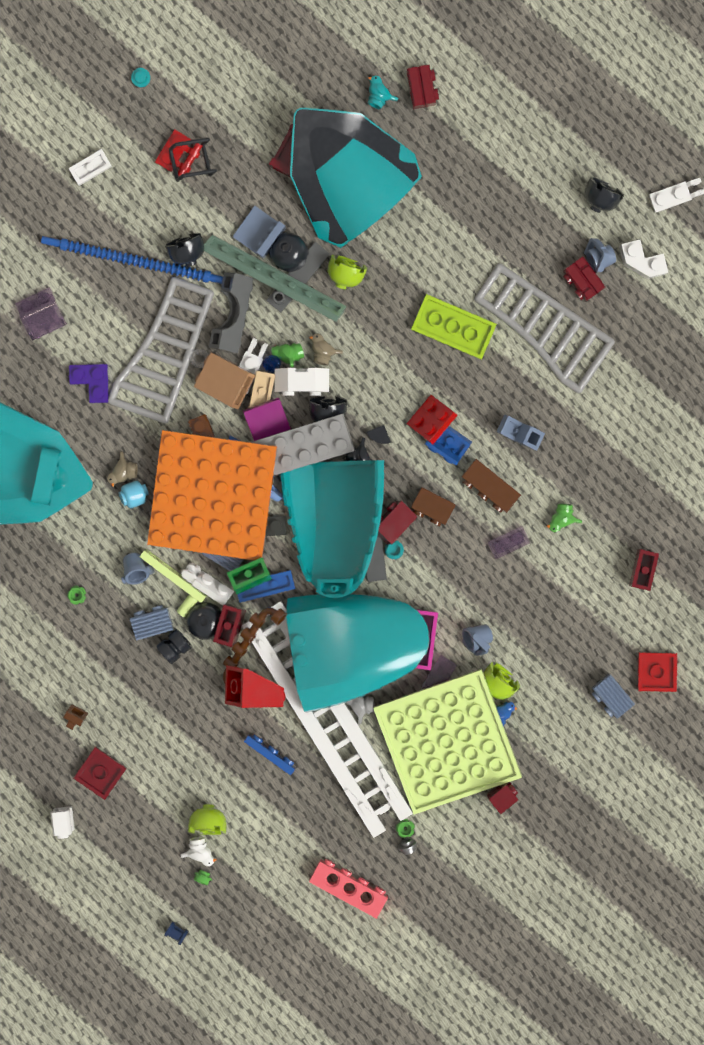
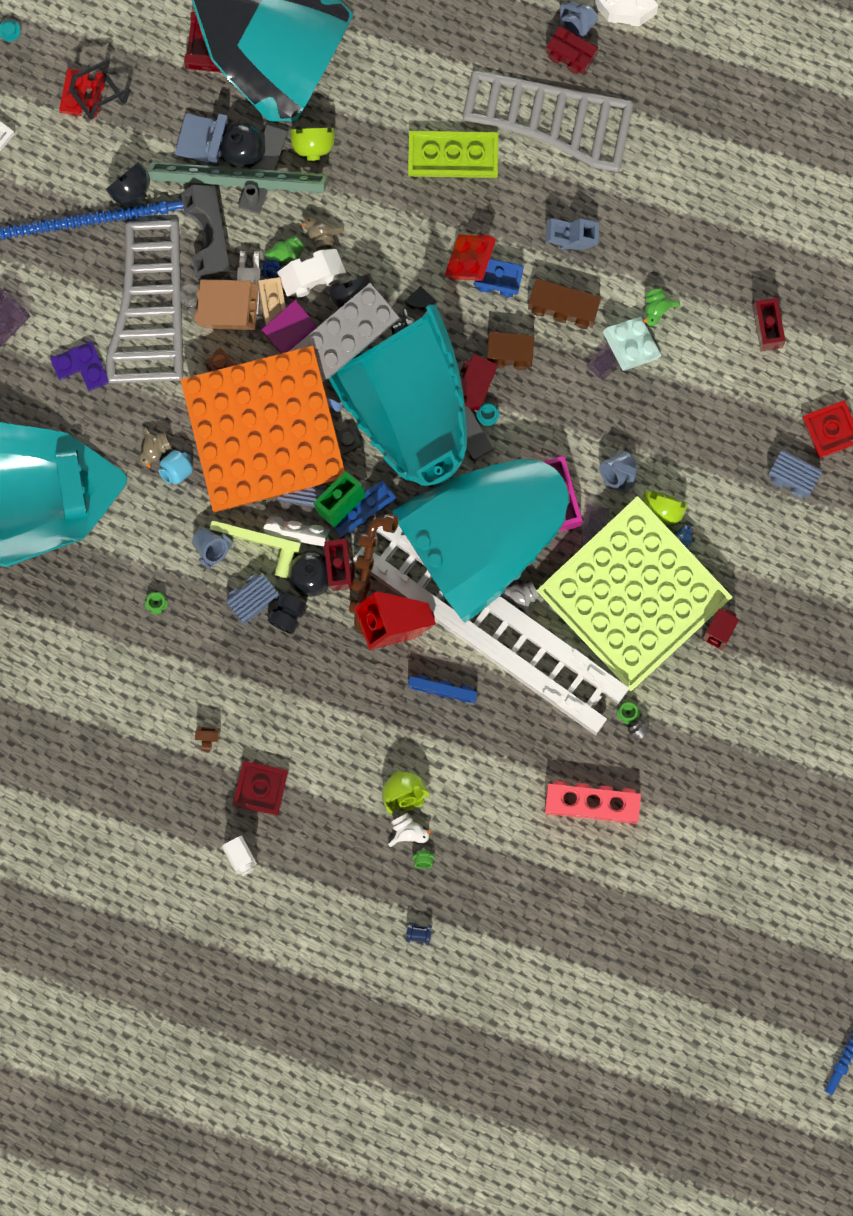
camera: 15 degrees left, 10 degrees down
(530, 540) = (631, 343): none -> light aqua plate

